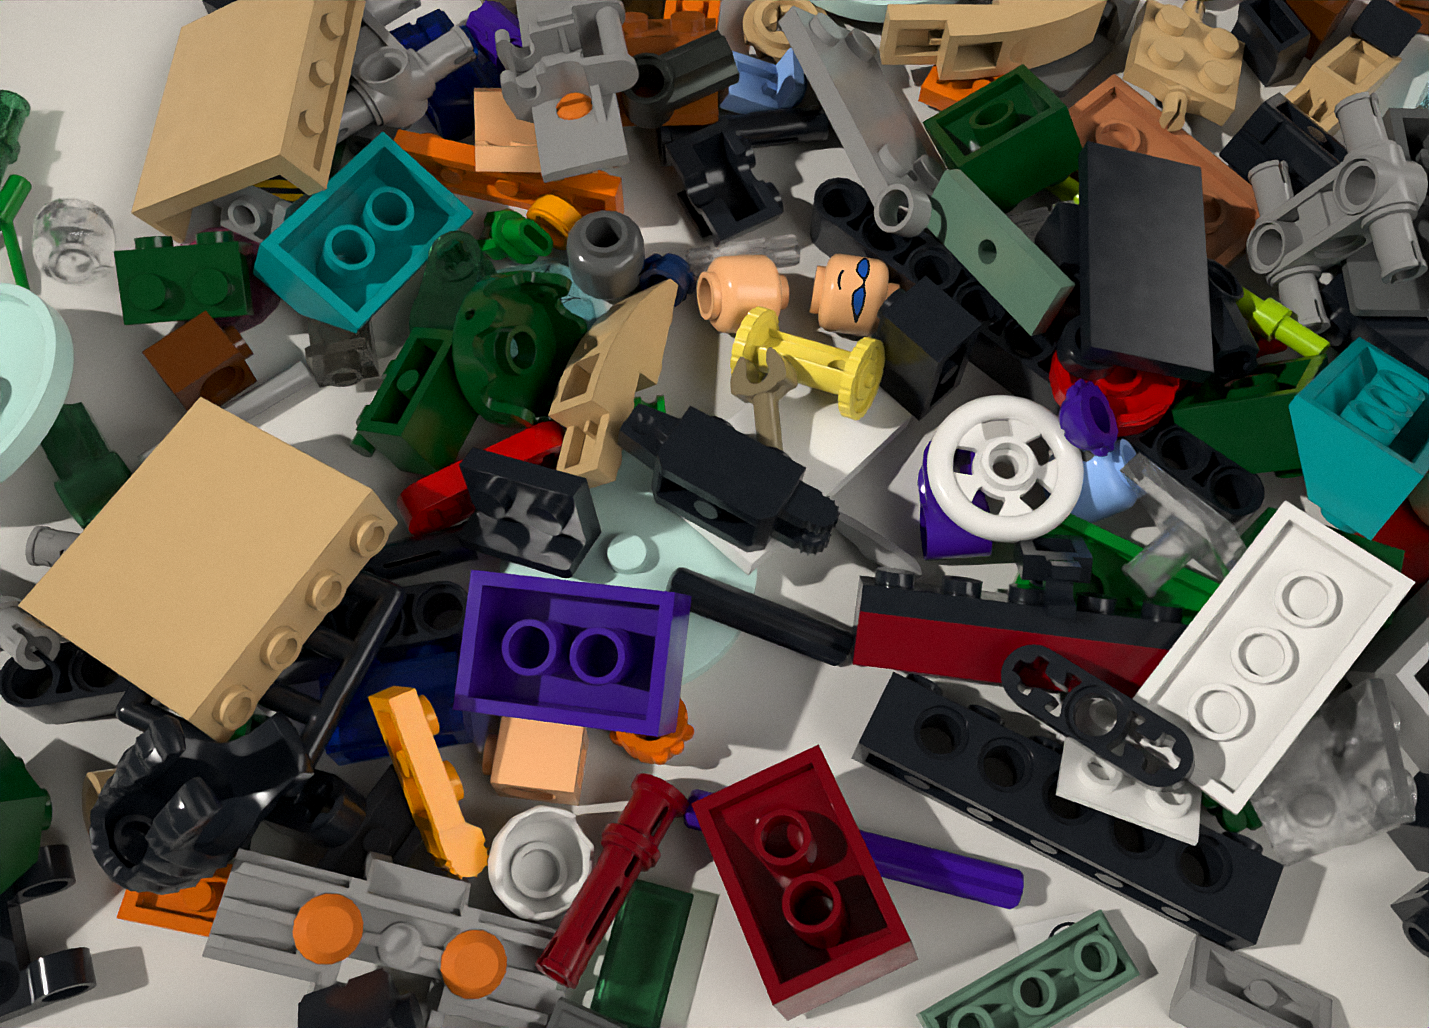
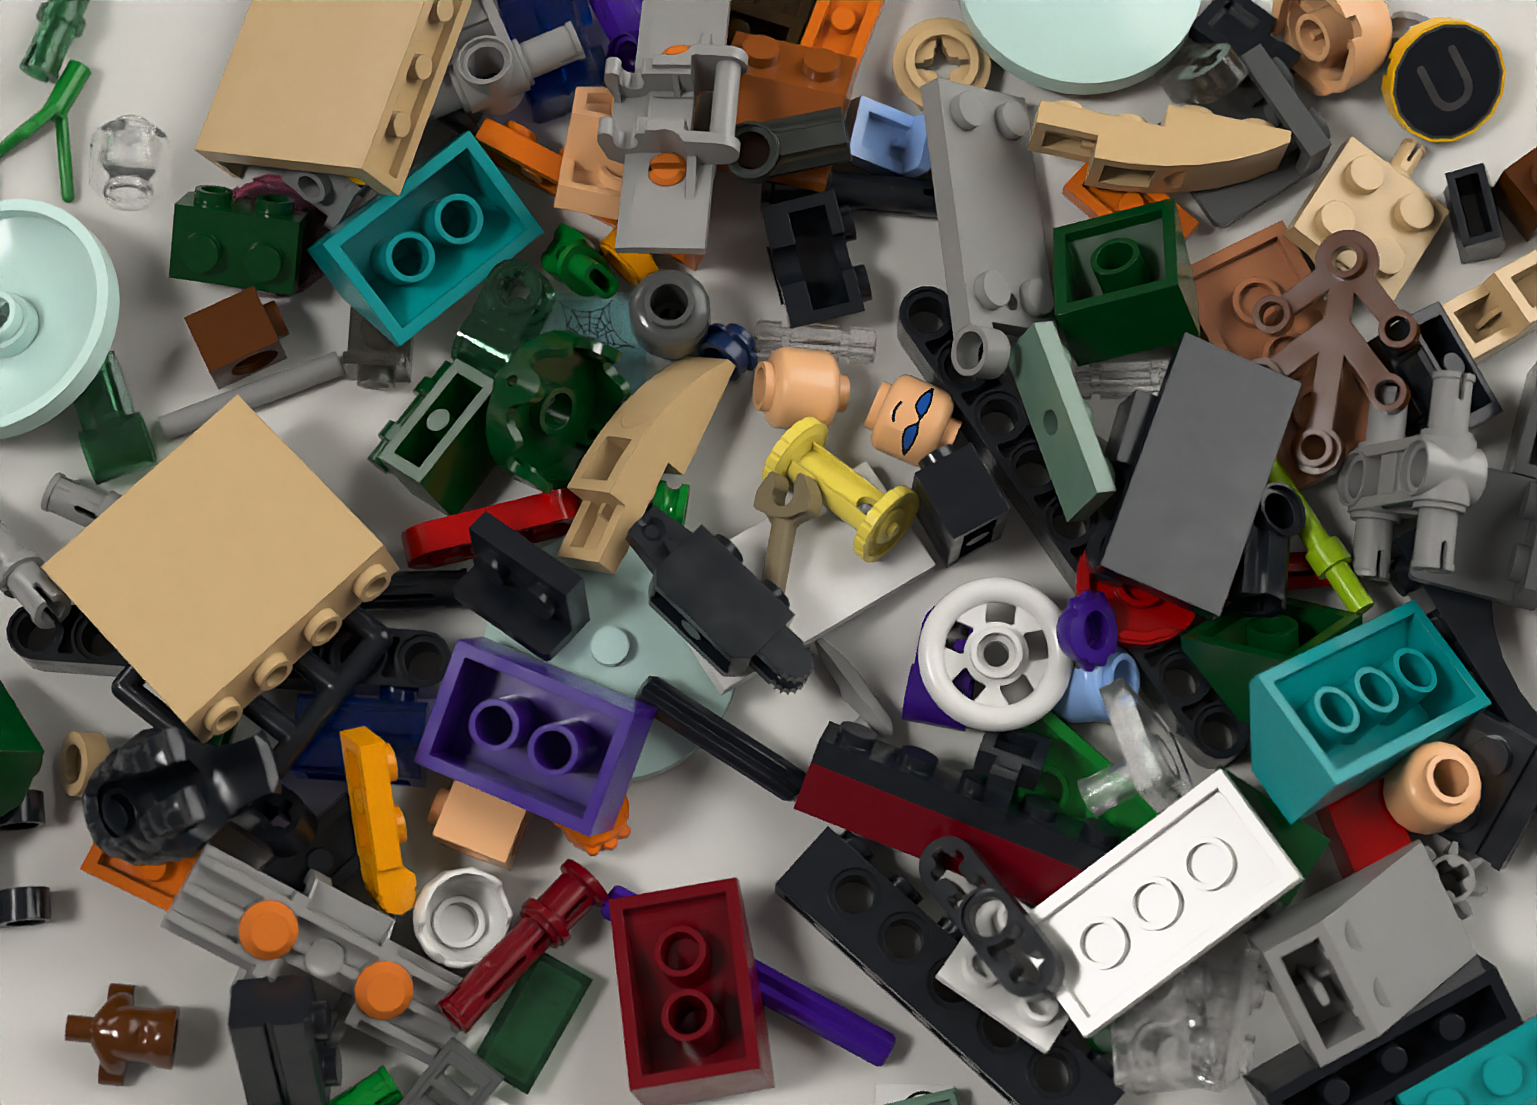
camera: 15 degrees right, 10 degrees up
(1210, 135) = (1334, 340): none -> reddish brown plant

